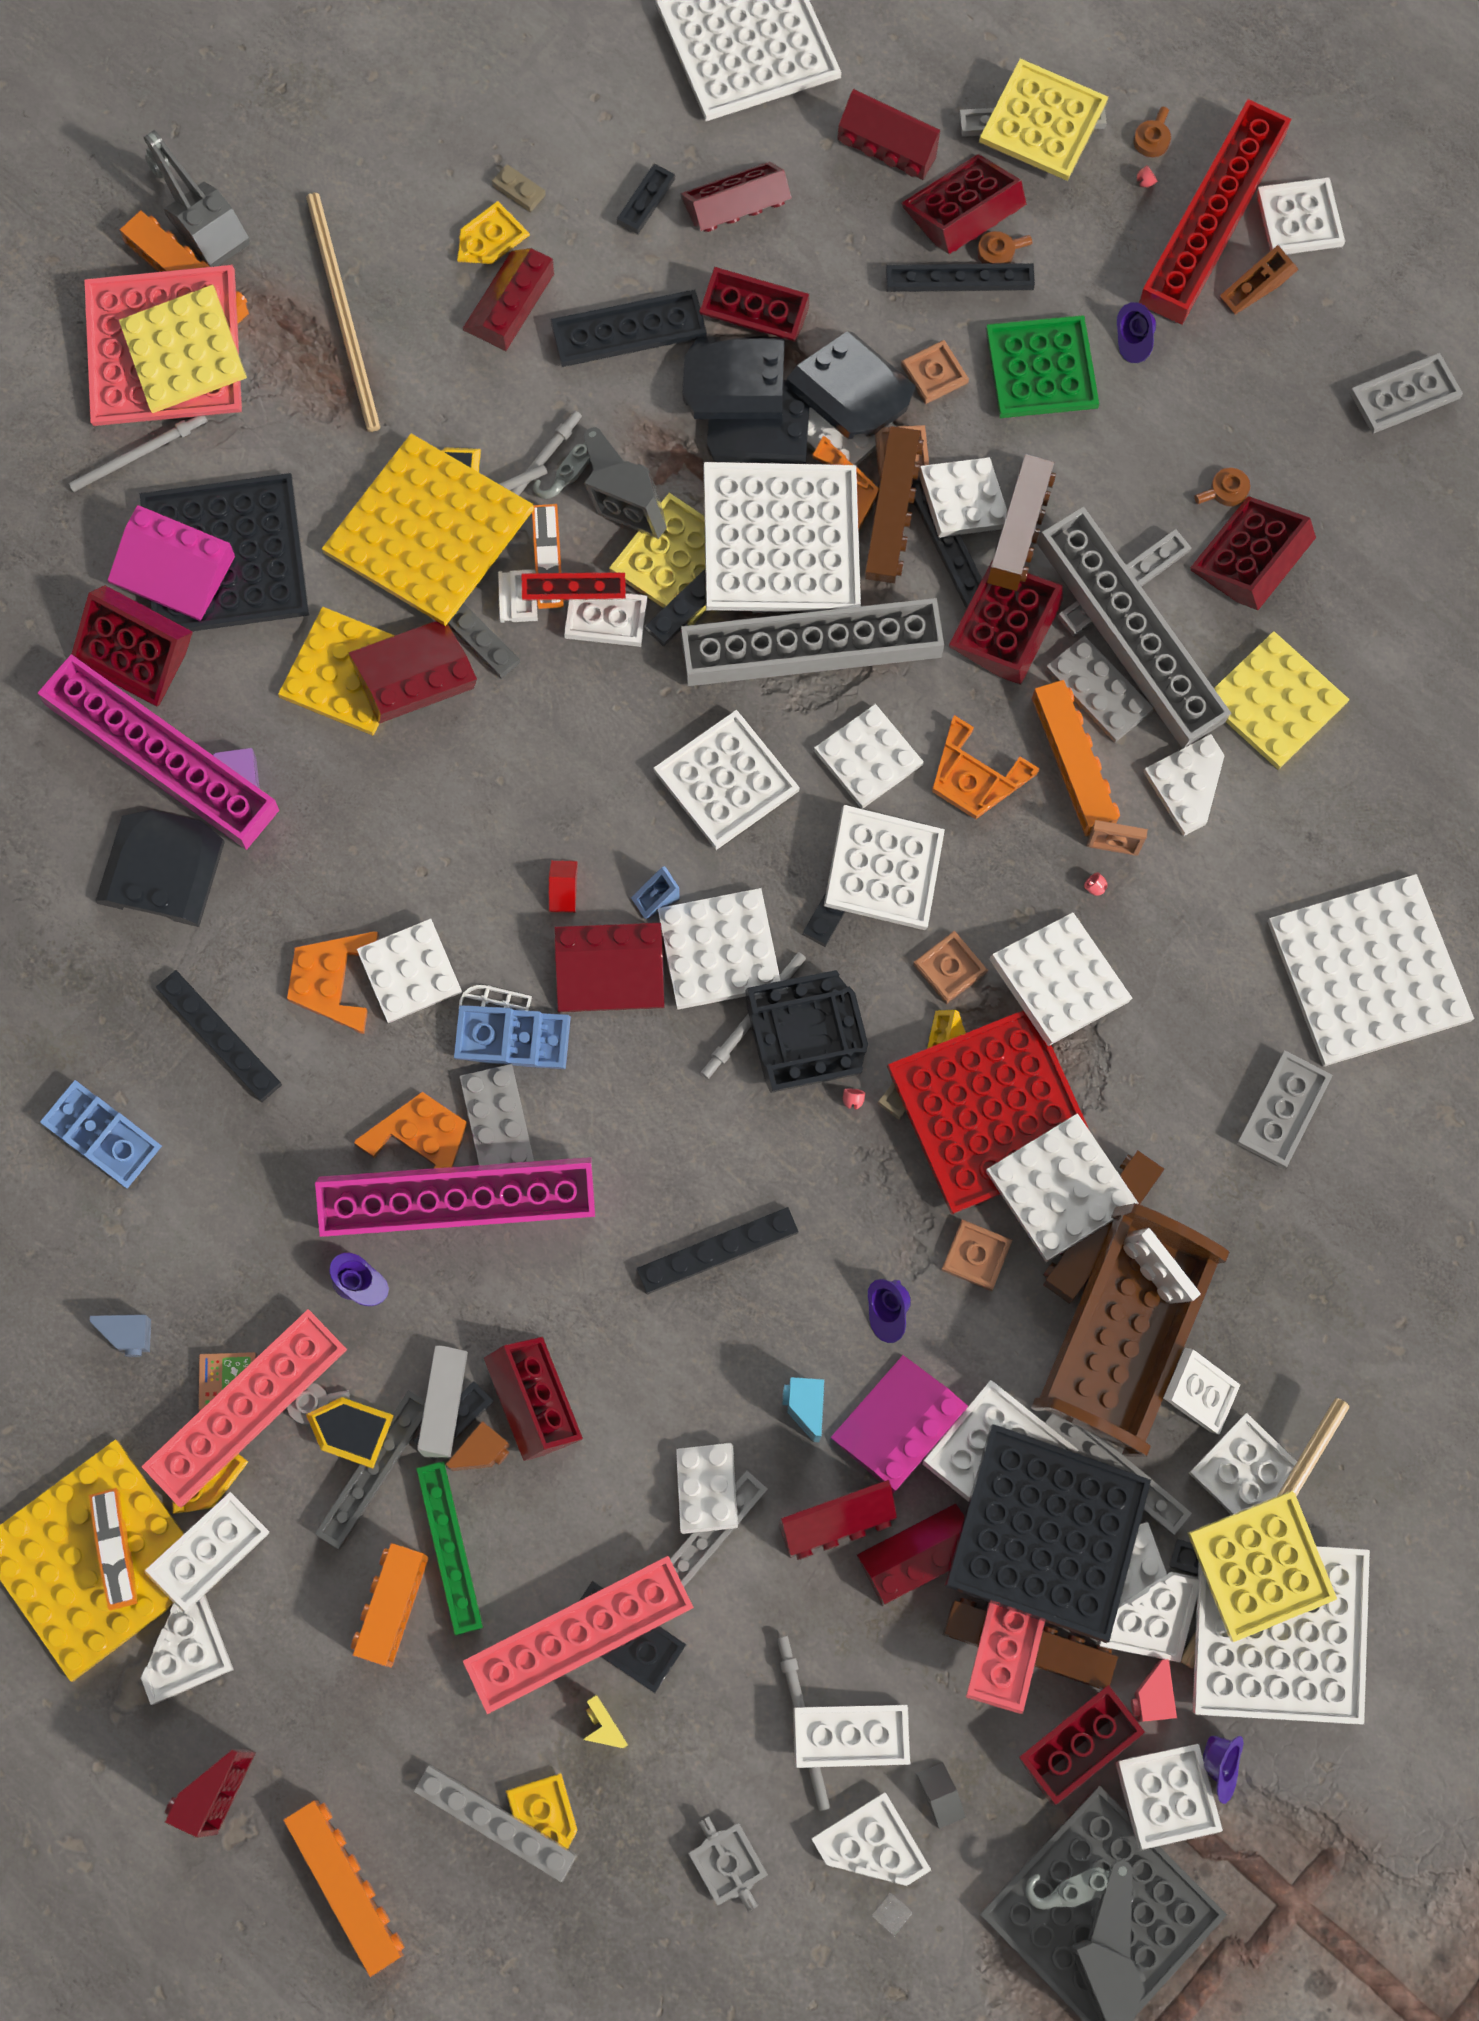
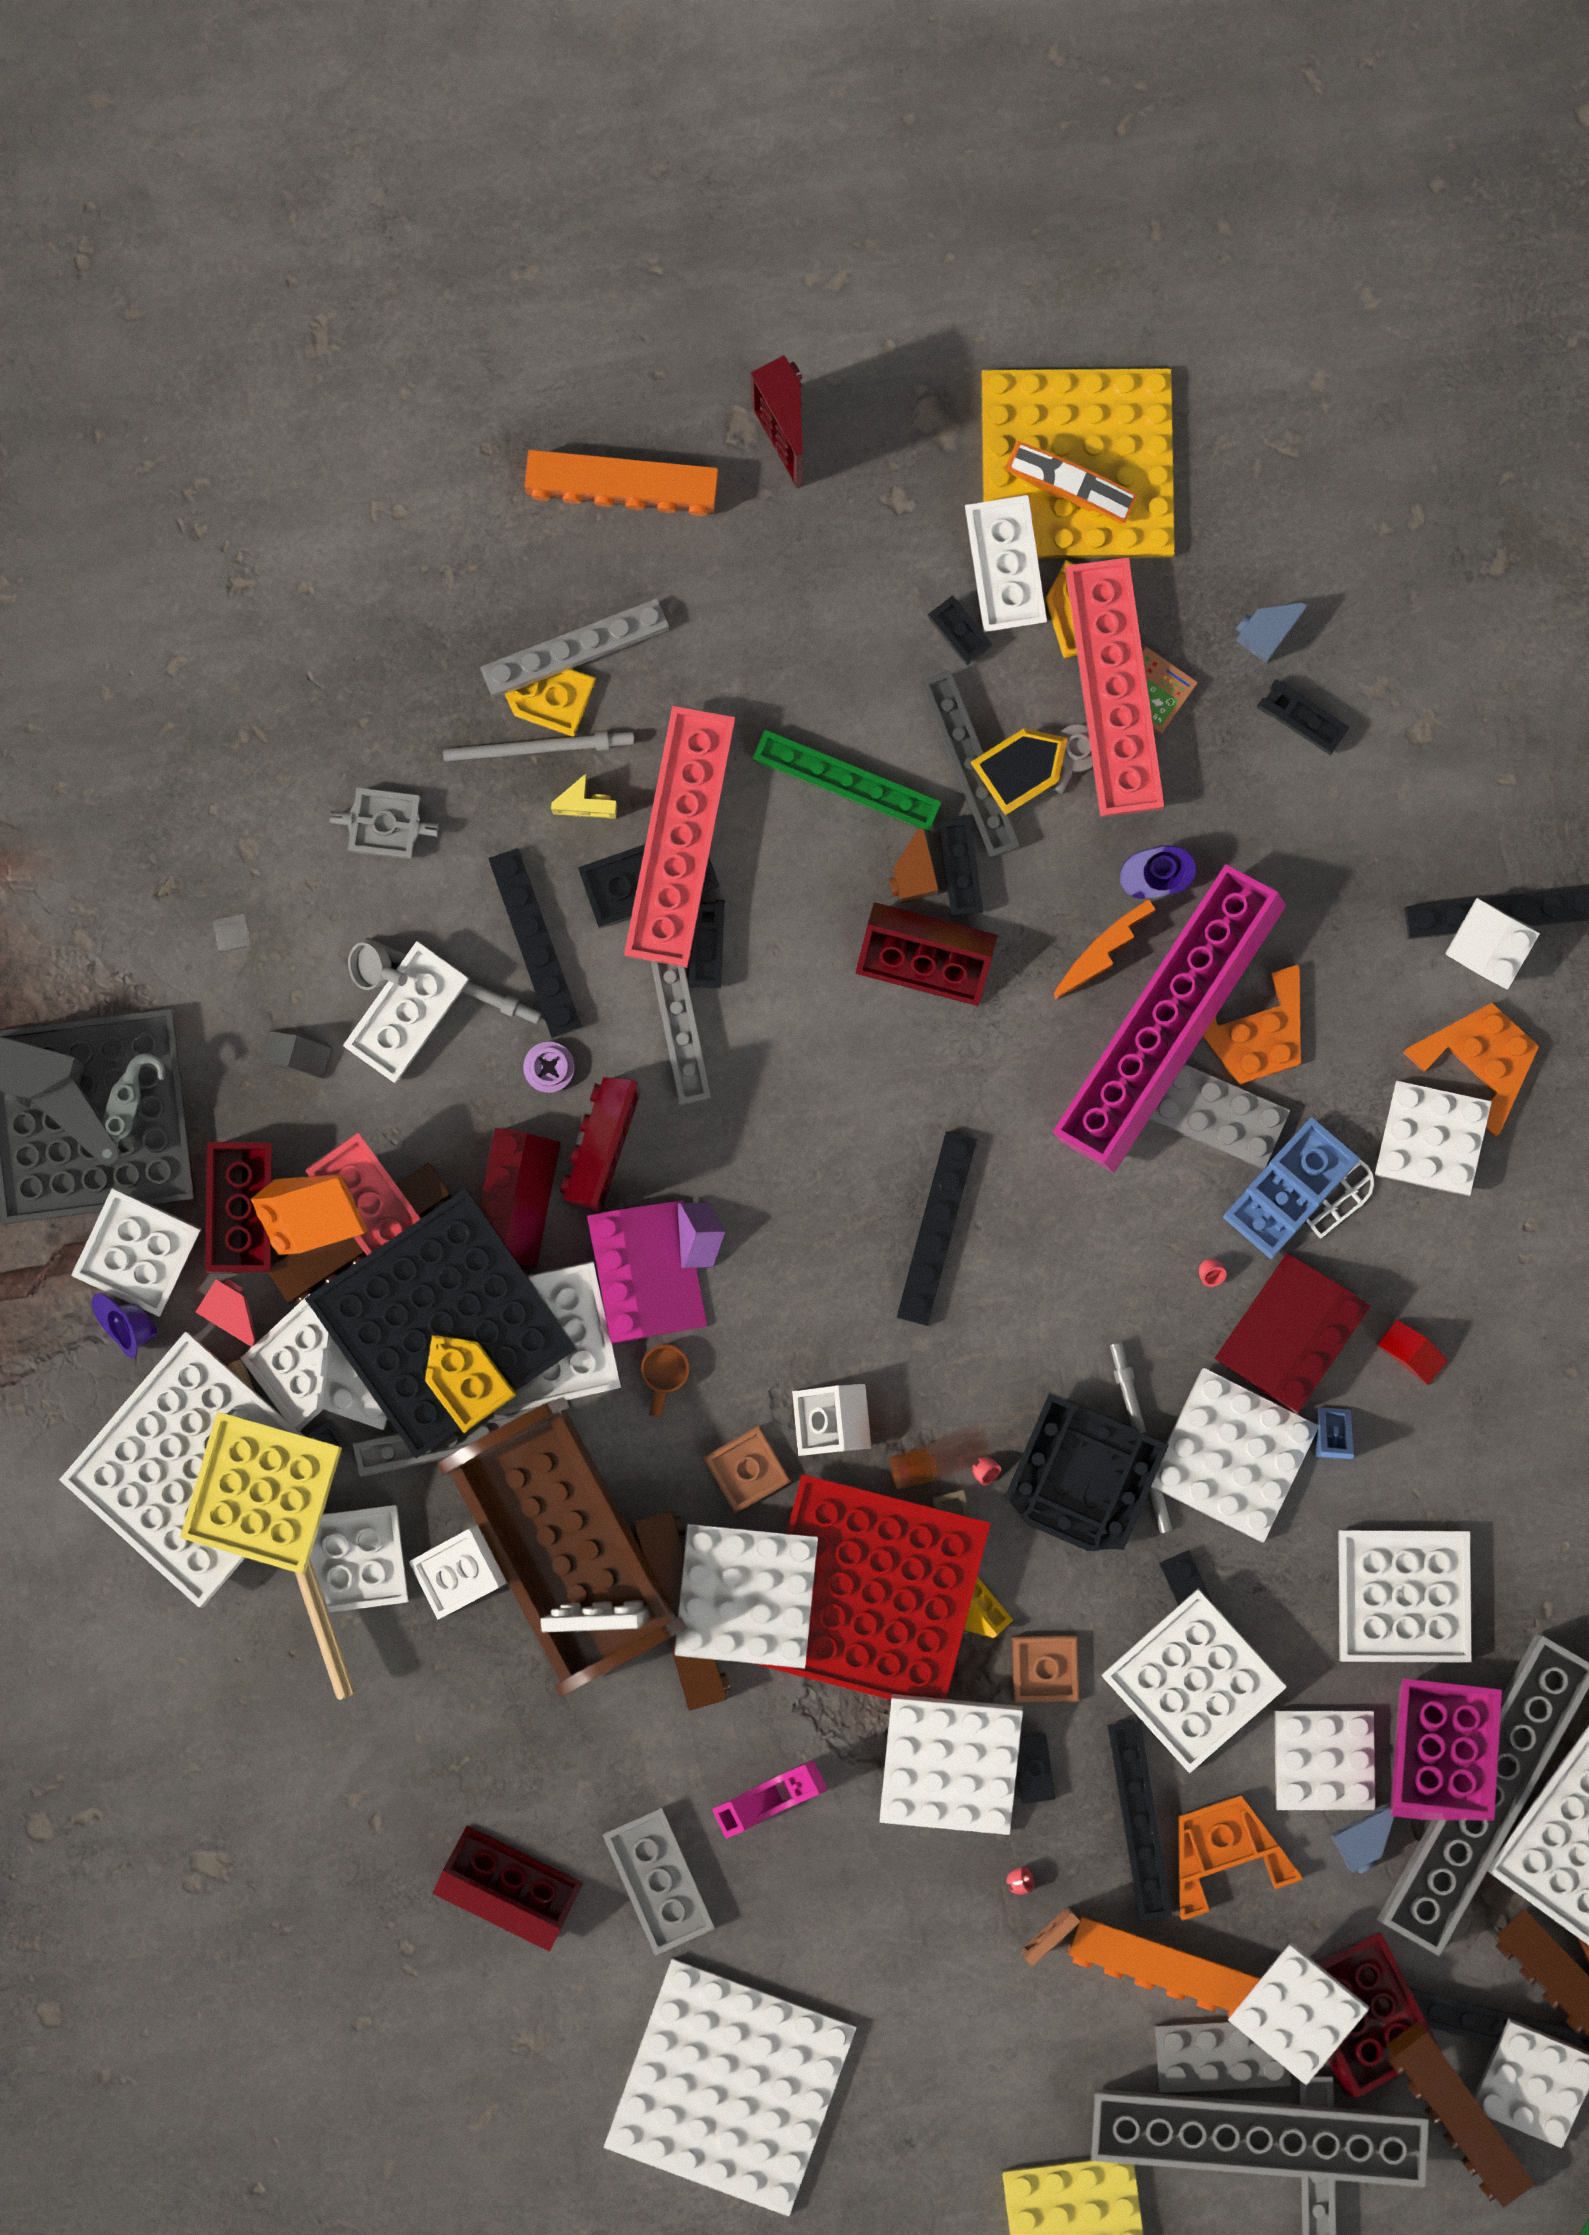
camera: 130 degrees right, 10 degrees up
(101, 1134) = (1482, 736): medium blue slope -> none
(173, 1263) = (1304, 717): none -> black plate
(185, 1653) = (929, 485): white plate -> none
(245, 1022) = (1492, 943): none -> white slope
(280, 1550) = (959, 630): none -> black plate
(390, 1605) = (833, 689): orange brick -> none
(442, 1402) = (984, 867): light grey slope -> none
(450, 1280) = (1096, 957): none -> orange slope
(549, 1750) = (600, 741): none -> light grey bar
(608, 1048) = (1212, 1272): none -> coral hinge
(642, 1554) = (708, 947): none -> black plate
(706, 1488) = (722, 1049): white plate -> none
(730, 1684) = (535, 943): none -> black plate
(805, 1404) = (727, 1194): medium azure slope -> none
(807, 681) = (1446, 1751): none -> dark pink slope
(822, 1595) = (533, 1067): none -> lavender gear
(839, 1787) = (371, 966): none -> light grey piece
(846, 1406) = (699, 1235): none -> medium lavender slope
(873, 1844) = (301, 962): white plate -> none
(888, 1309) = (759, 1343): dark purple piece -> none
(892, 1144) = (912, 1468): none -> clear orange slope
(898, 696) = (1364, 1840): none -> sand blue slope
(900, 1222) = (831, 1419): none -> white slope
(956, 1358) = (664, 1371): none -> dark orange piece
(998, 840) = (1139, 1820): none -> black plate
(1019, 925) = (1035, 1769): none -> black plate
(1040, 653) = (1298, 2013): none -> white plate
(1050, 1687) = (307, 1213): none -> orange slope
(1074, 1483) = (465, 1380): none -> yellow tile
(1174, 1078) = (769, 1798): none -> dark pink arch
(1188, 782) = (1057, 2064): white plate -> none
(1370, 1202) = (507, 1888): none -> dark red slope

